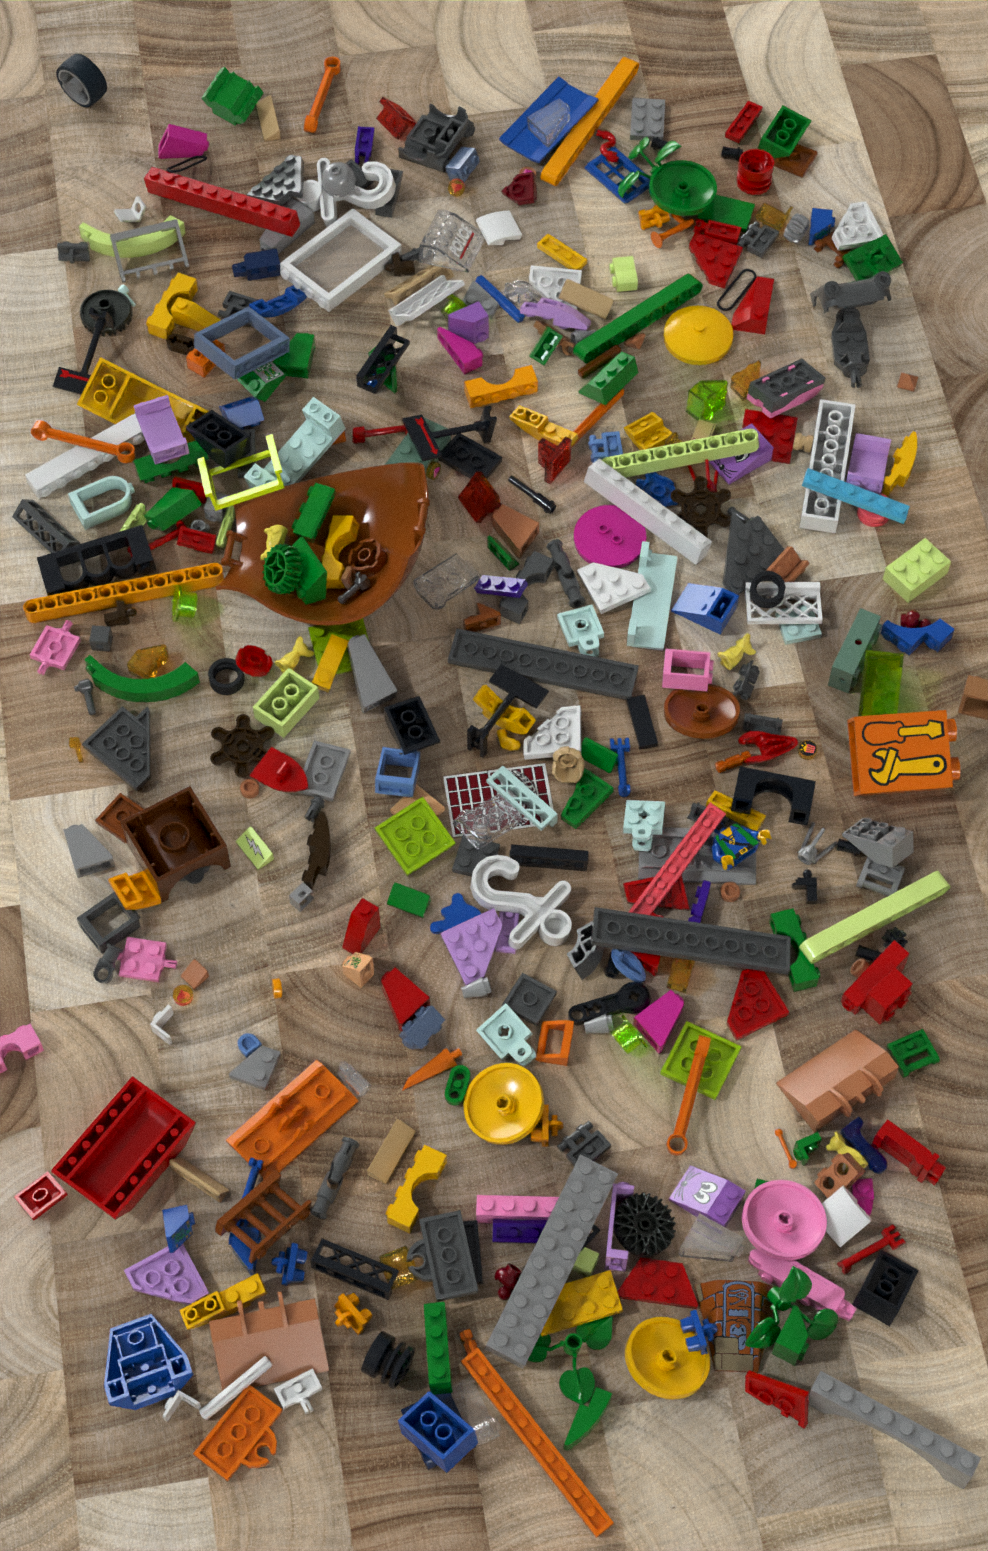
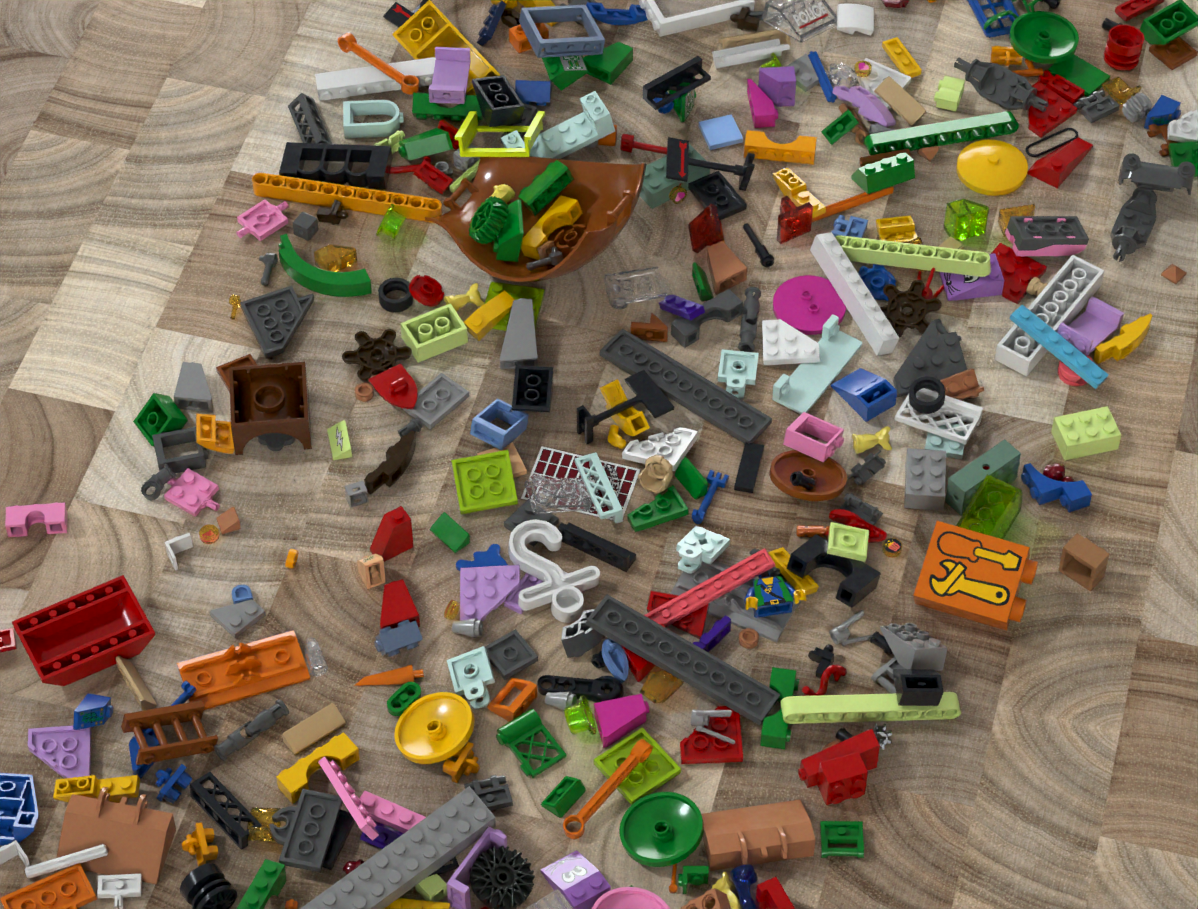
camera: 25 degrees right, 10 degrees down
(71, 896) = (159, 417): none -> green slope
(163, 356) = (491, 23): none -> dark blue plate
(437, 390) = (720, 132): none -> light blue tile
(453, 977) = (451, 610): none -> clear yellow tile
(475, 1213) = (351, 800): none -> bright pink plate
(535, 278) = (863, 68): none -> clear yellow tile
(578, 1074) = (522, 729): none -> green piece
(650, 1117) = (564, 796): none -> green slope
(668, 250) = (1001, 85): none -> dark grey plate
(701, 719) = (798, 479): none -> black pin
(735, 990) = (700, 718): none -> light grey plant
(757, 1114) = (661, 829): none -> green dish
(772, 762) = (848, 541): none -> yellowish green tile
(803, 672) = (925, 479): none -> light grey brick
(822, 895) = (836, 670): none -> red animal
(909, 880) = (918, 687): none -> black slope

